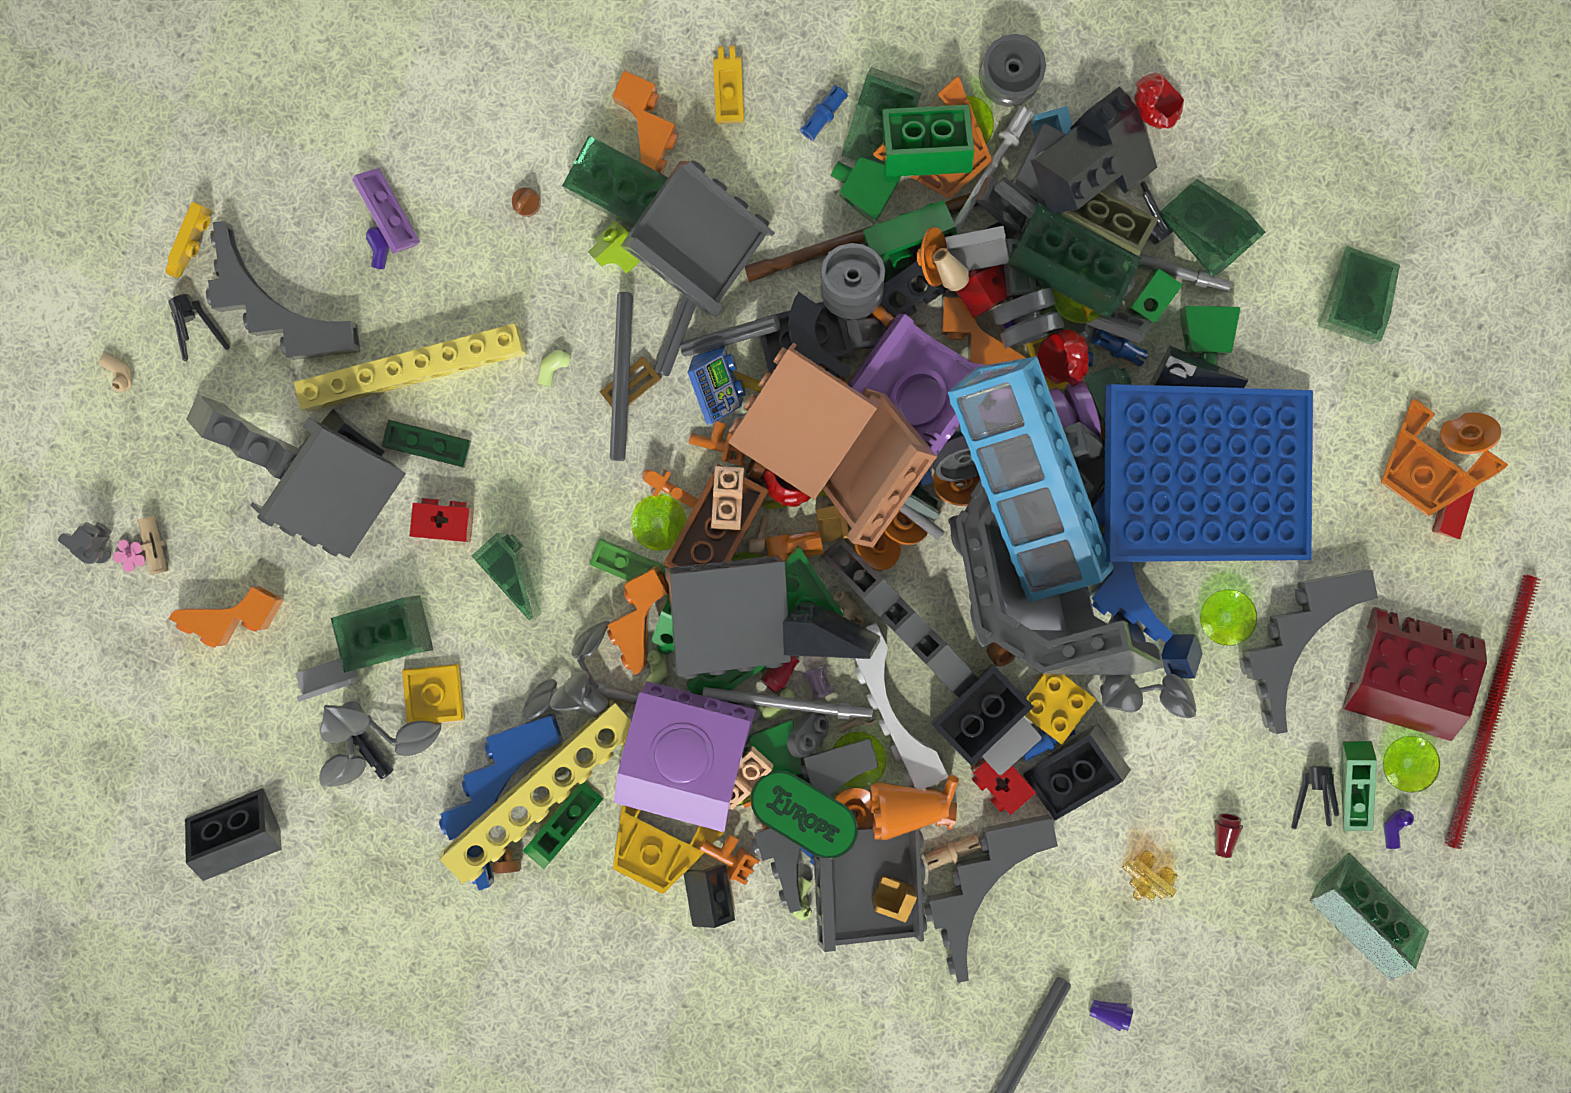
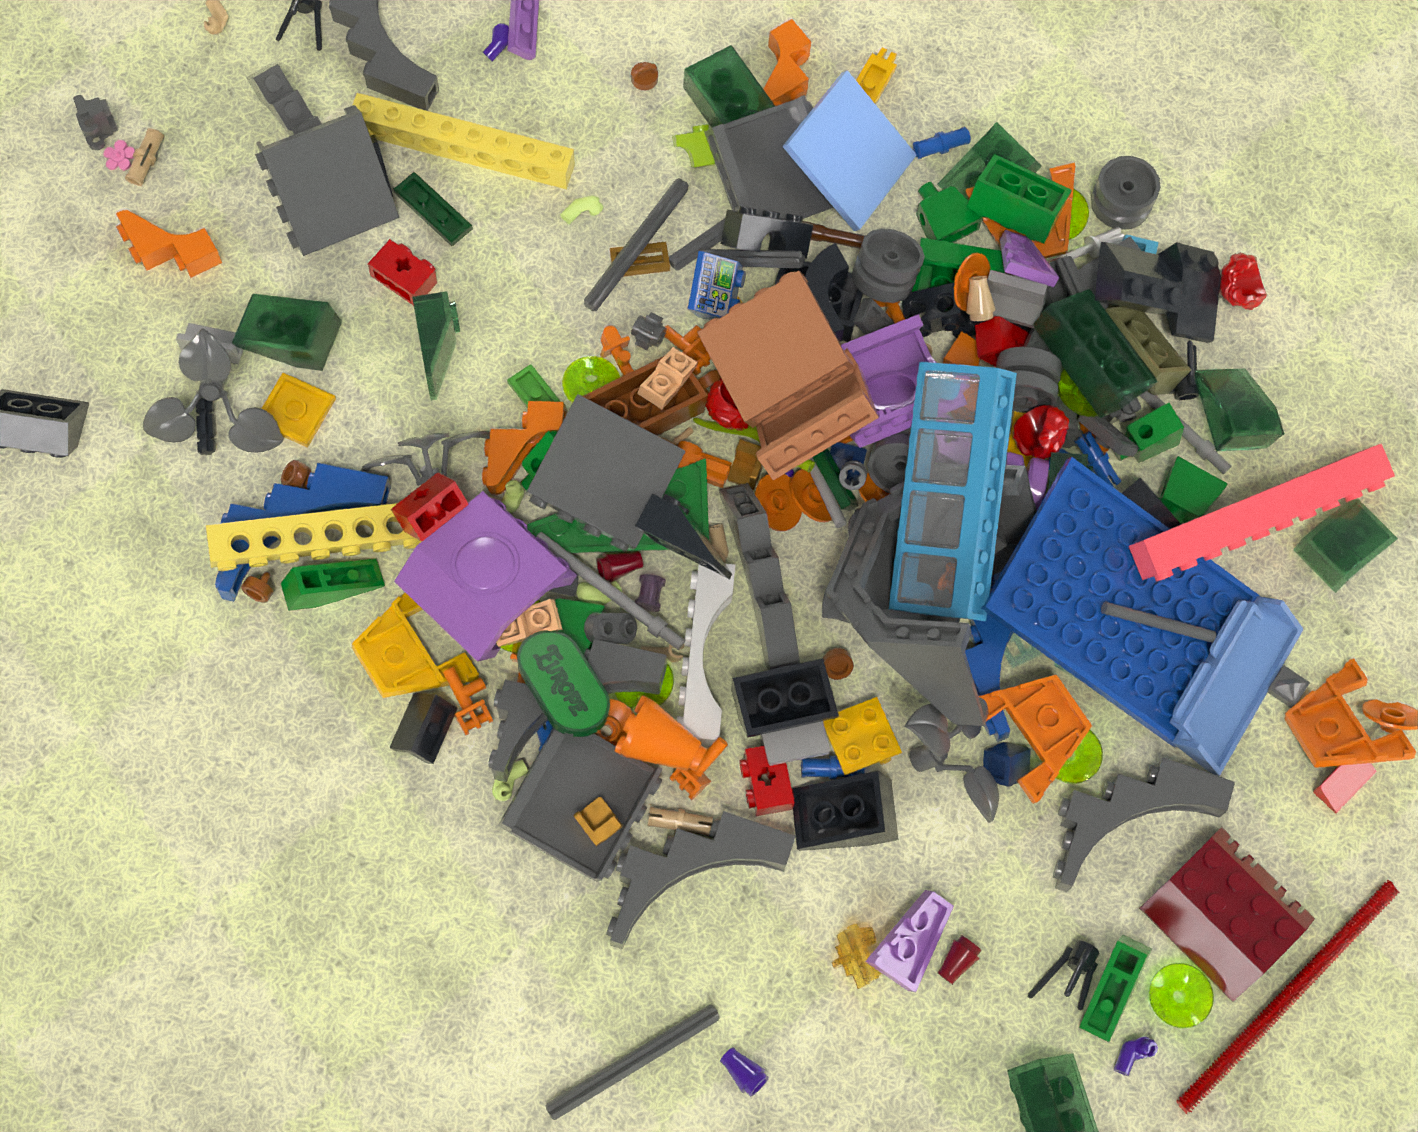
camera: 25 degrees right, 20 degrees down
(473, 753) = (296, 474): none -> dark orange tile
(606, 733) = (429, 506): none -> red brick
(680, 451) = (648, 331): none -> dark grey gear
(712, 316) = (747, 230): none -> black arch
(754, 181) = (850, 150): none -> light blue tile
(929, 495) = (855, 465): none -> dark grey bush
(967, 205) = (1025, 260): none -> medium lavender wing
(1185, 846) = (912, 941): none -> medium lavender wing
(1198, 607) = (1048, 722): none -> orange wing
(1247, 474) = (1158, 622): none -> dark grey bar
(1284, 321) = (1260, 512): none -> coral brick
(1327, 477) = (1234, 680): none -> medium blue slope
(1371, 454) = (1288, 687): none -> dark grey tile

